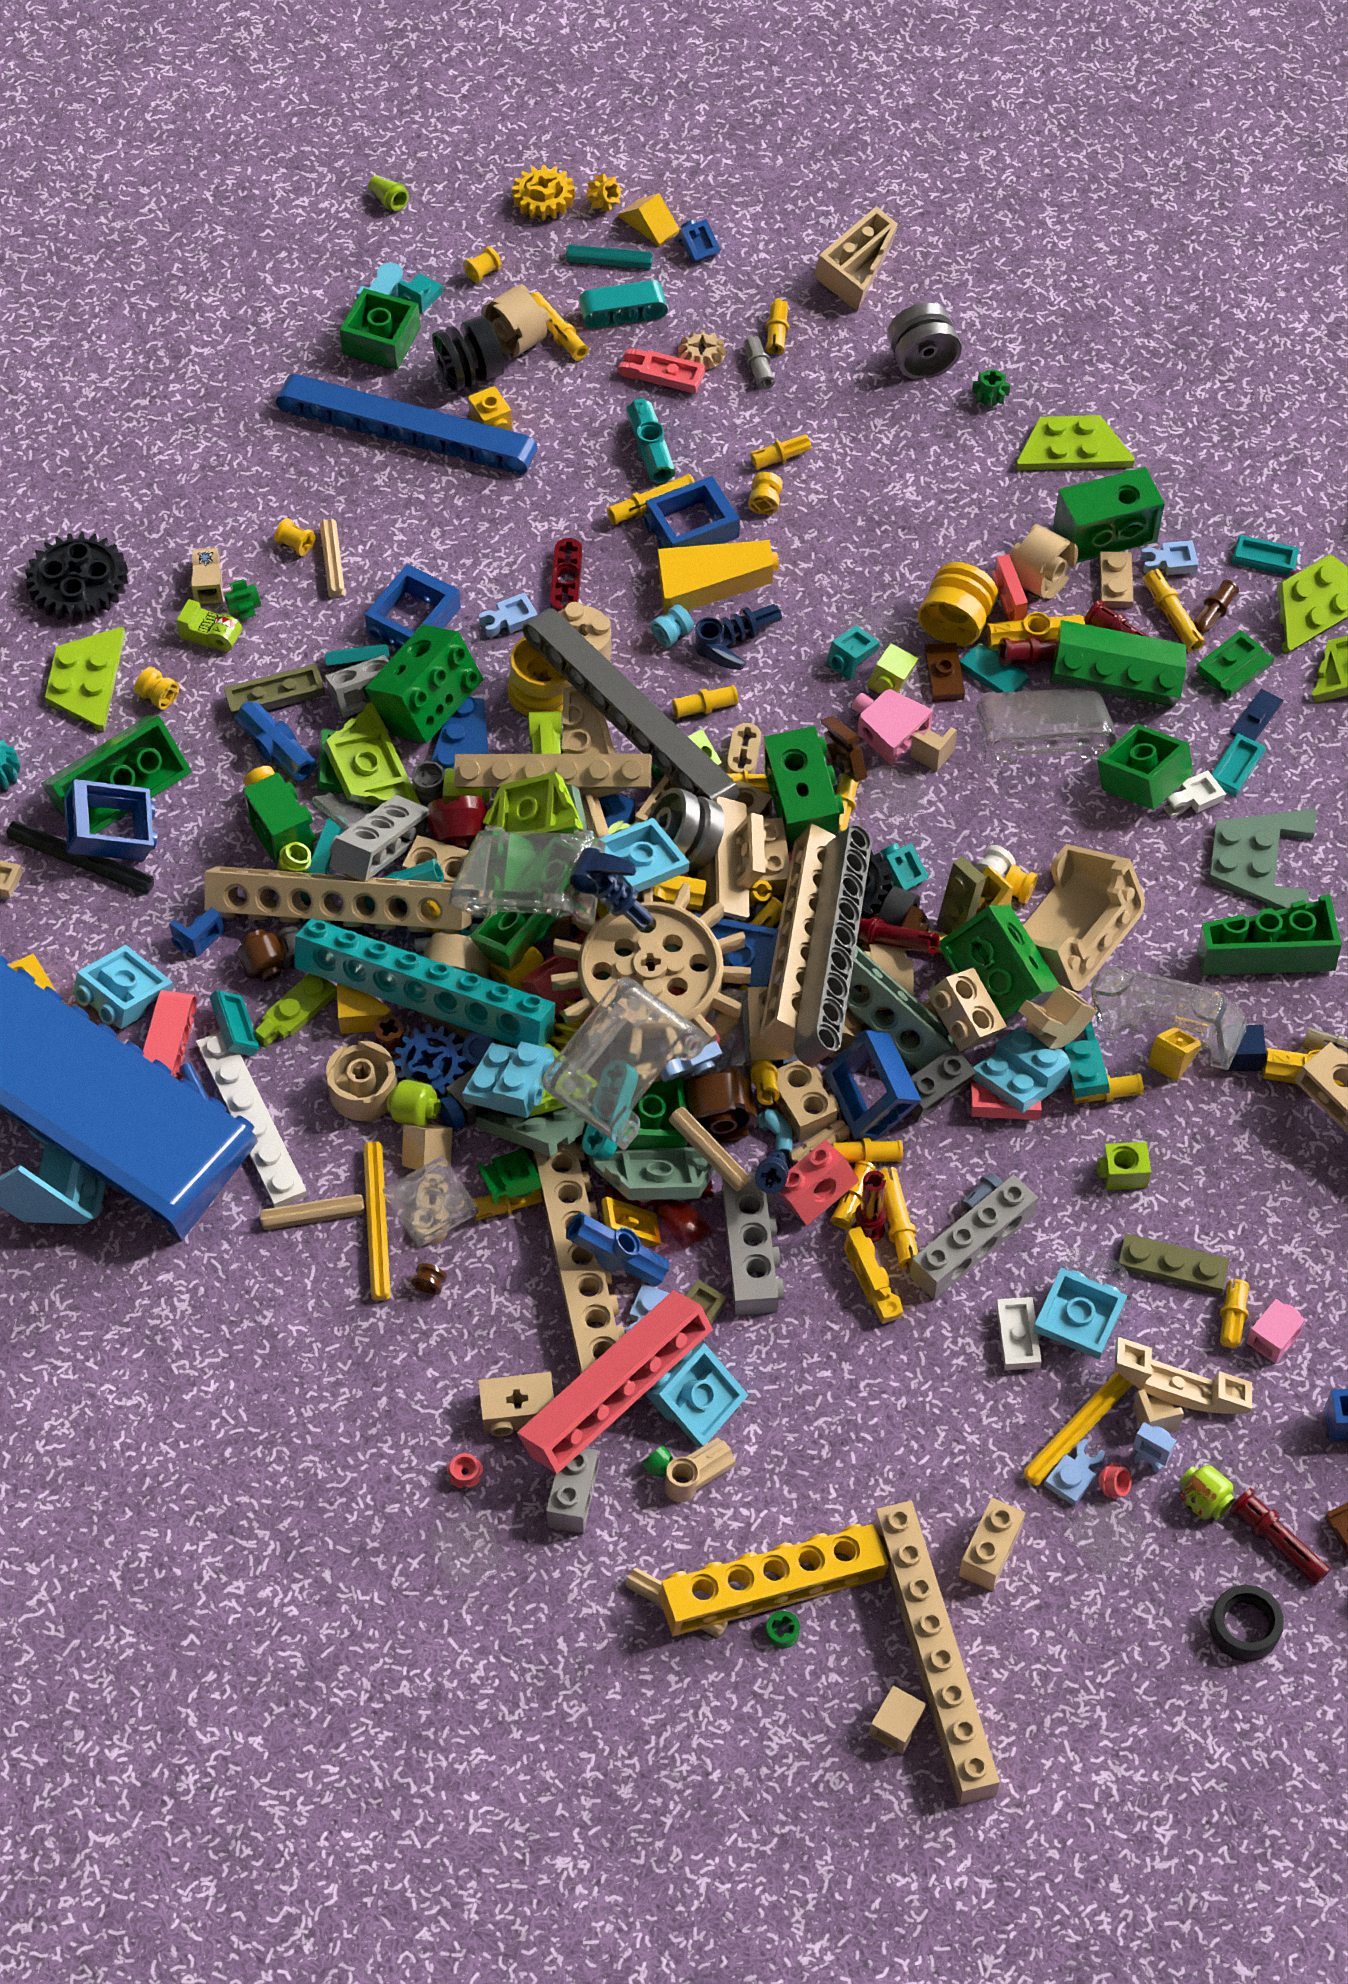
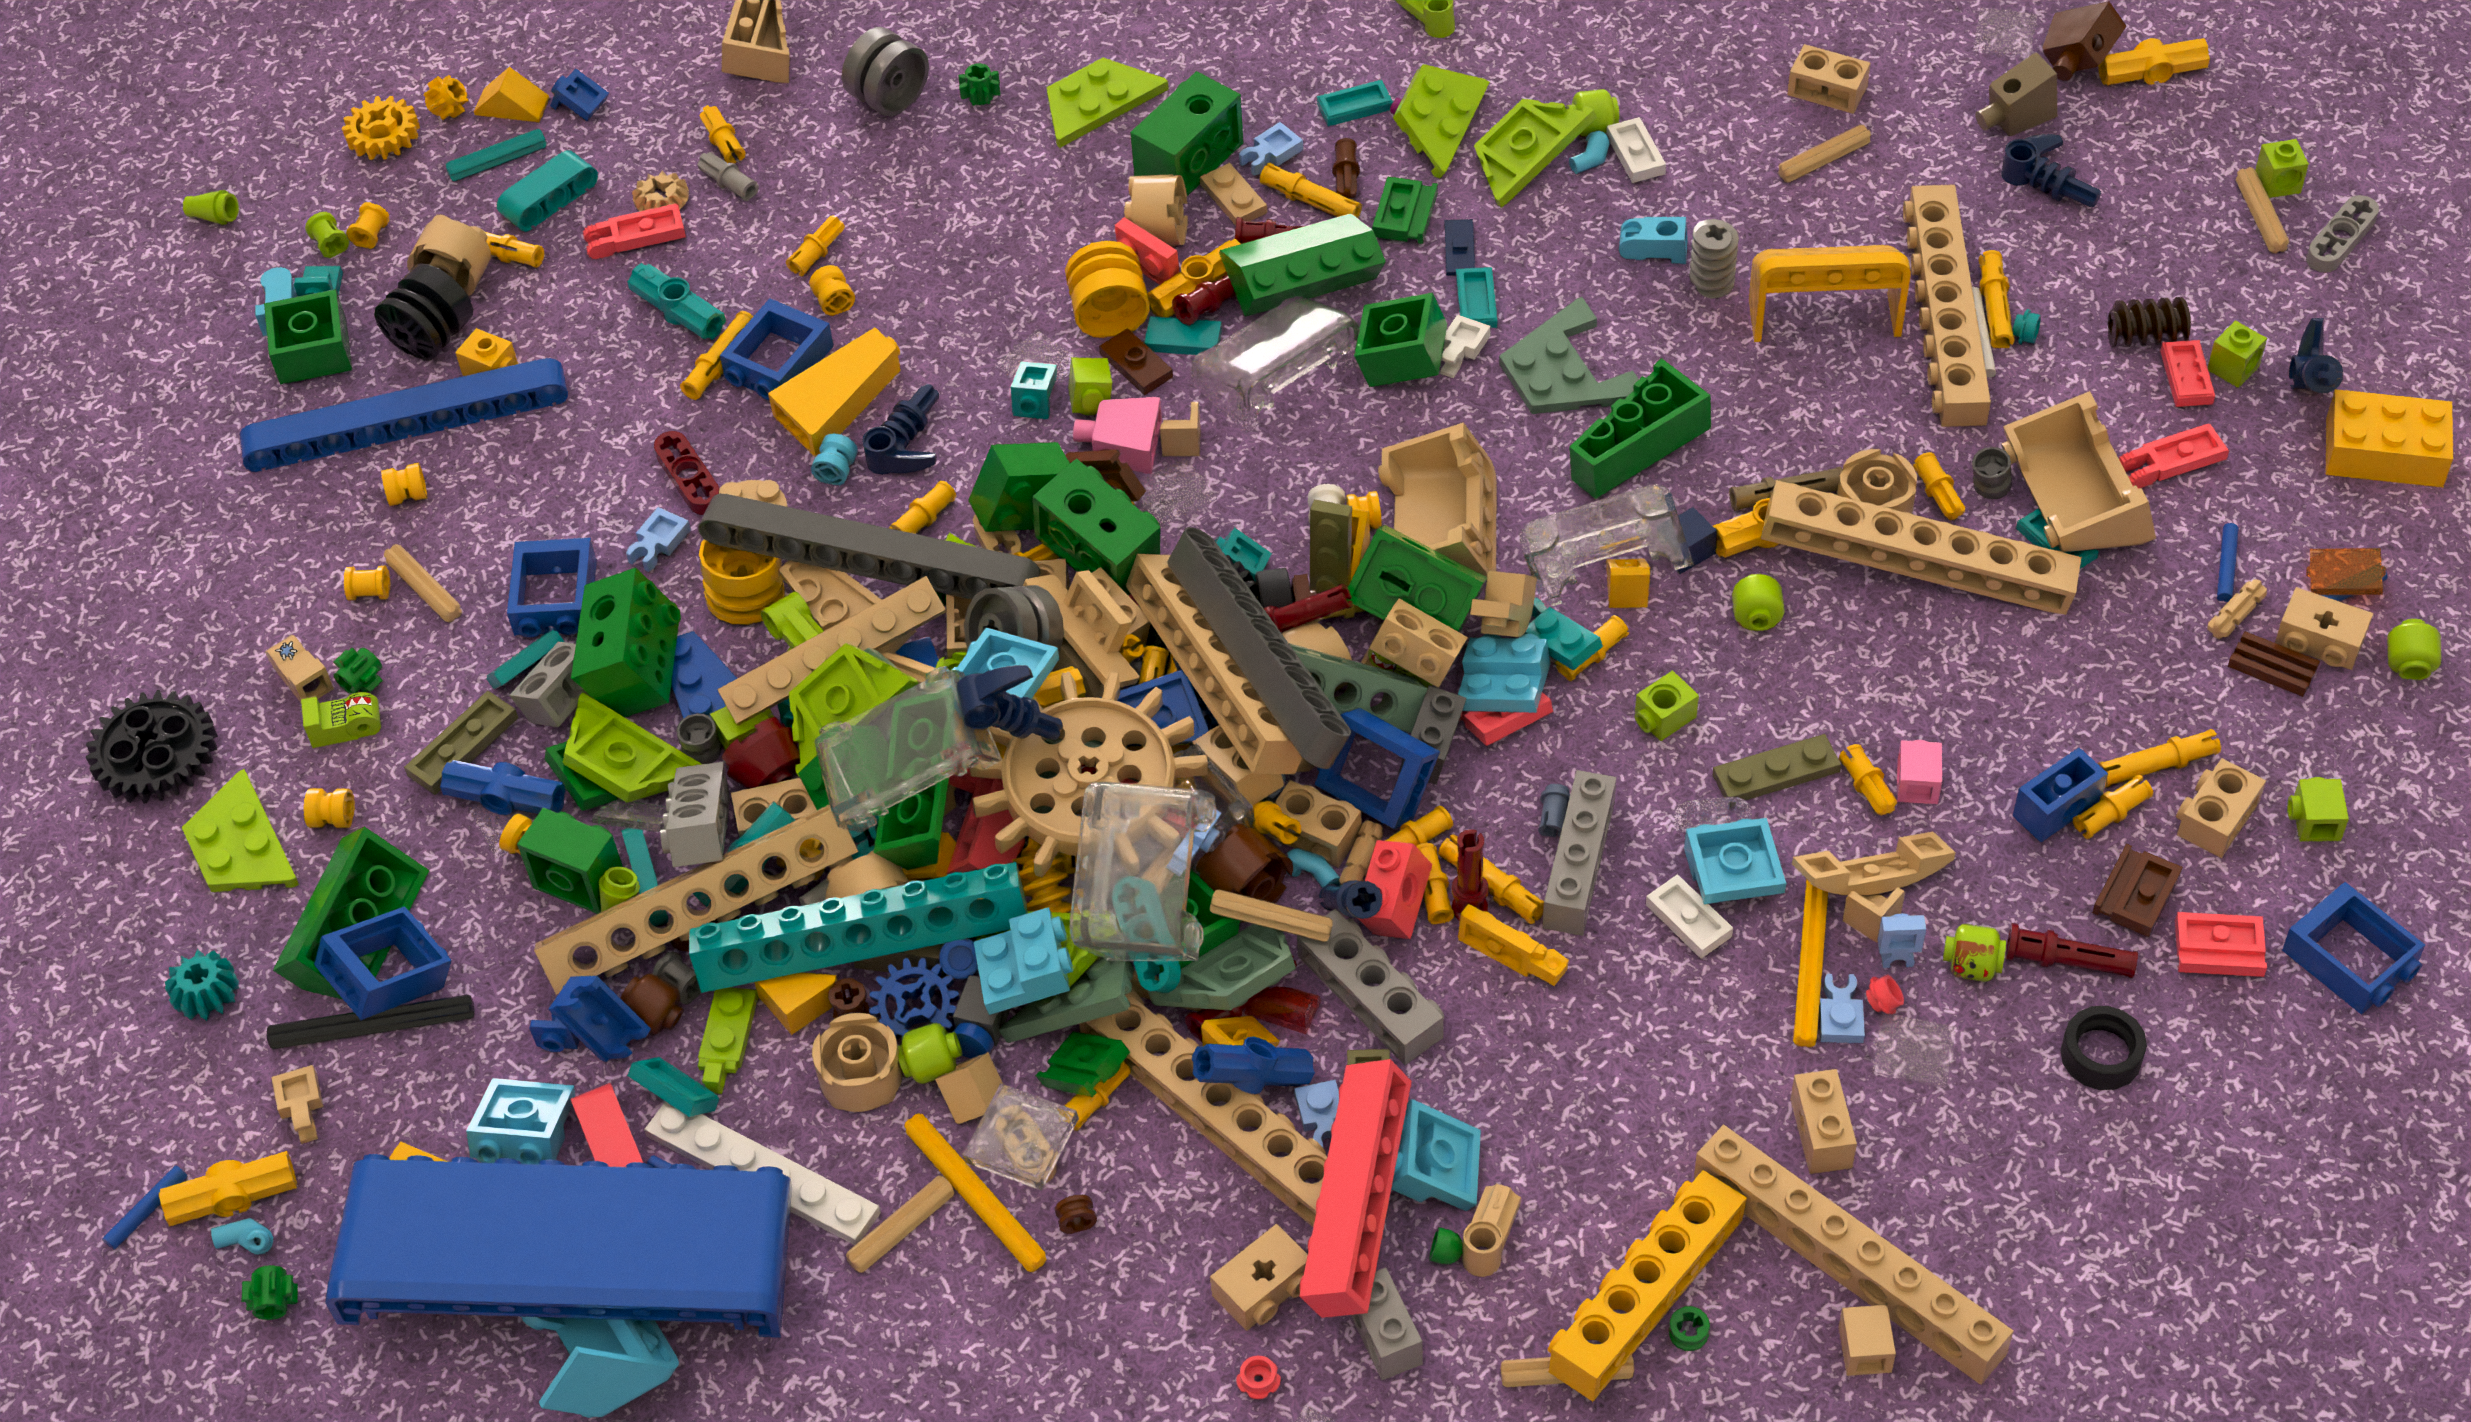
camera: 30 degrees left, 5 degrees down
(215, 944) = (598, 1017): none -> blue hinge
(369, 477) = (404, 484): none -> yellow wheel
(448, 255) = (329, 238): none -> lime bush
(772, 712) = (1010, 479): none -> green brick
(1259, 1128) = (1758, 600): none -> lime head

